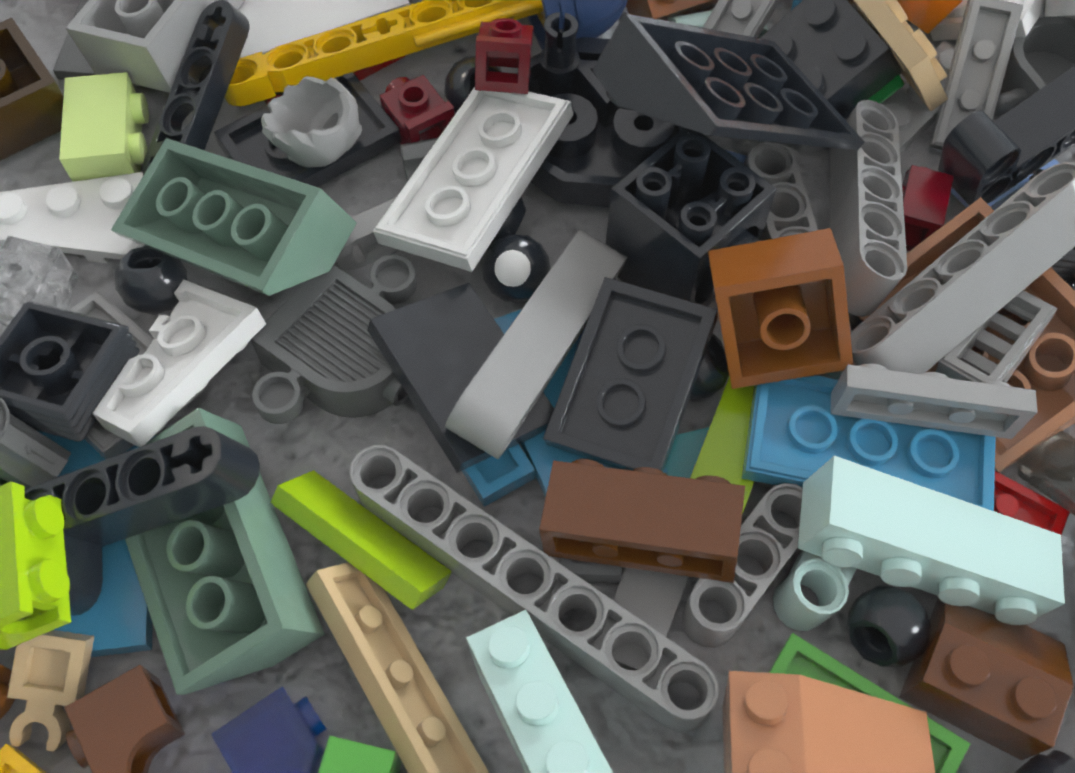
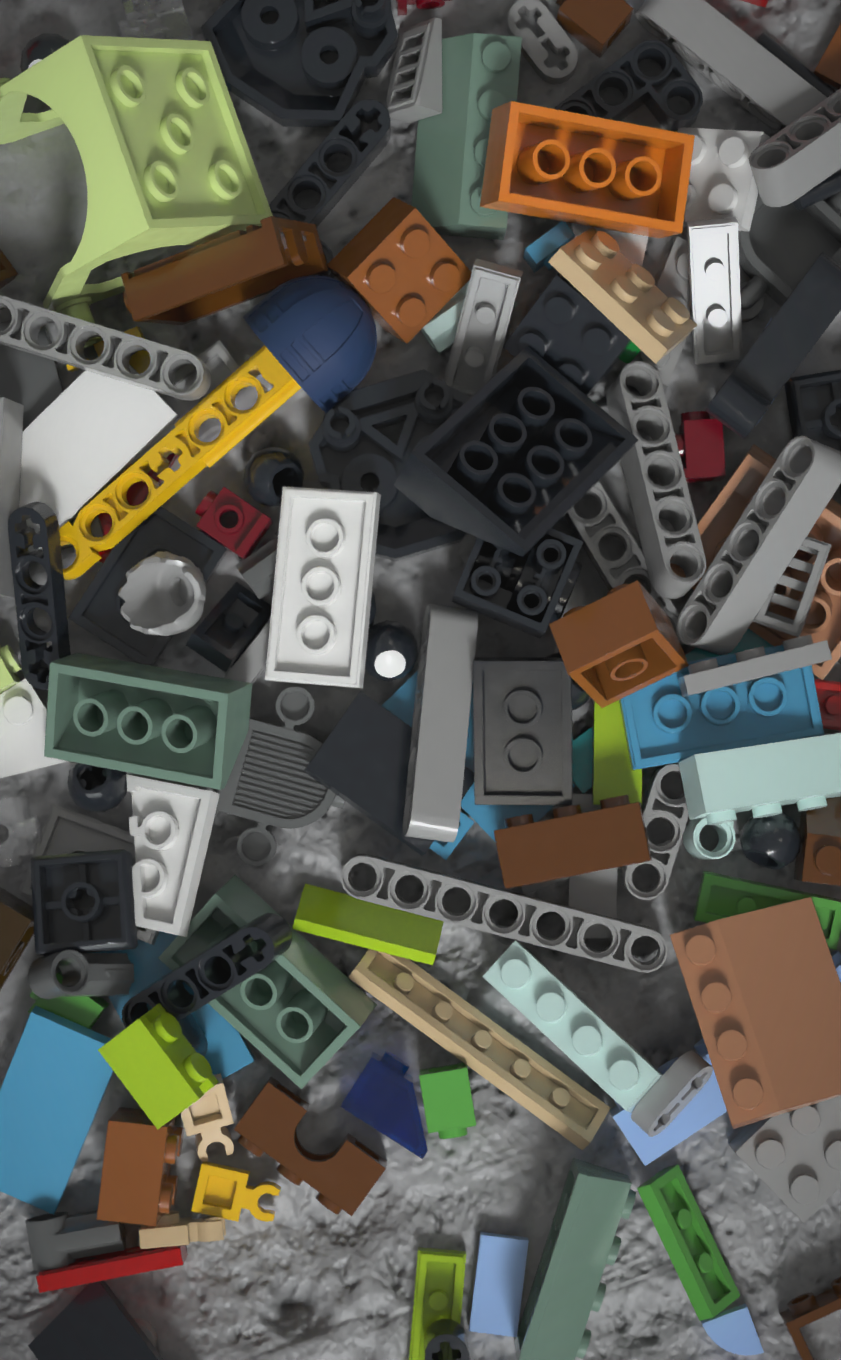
camera: 15 degrees left, 25 degrees up
(355, 185) = (230, 627): none -> black slope
(503, 44) = (301, 468): dark red brick -> none

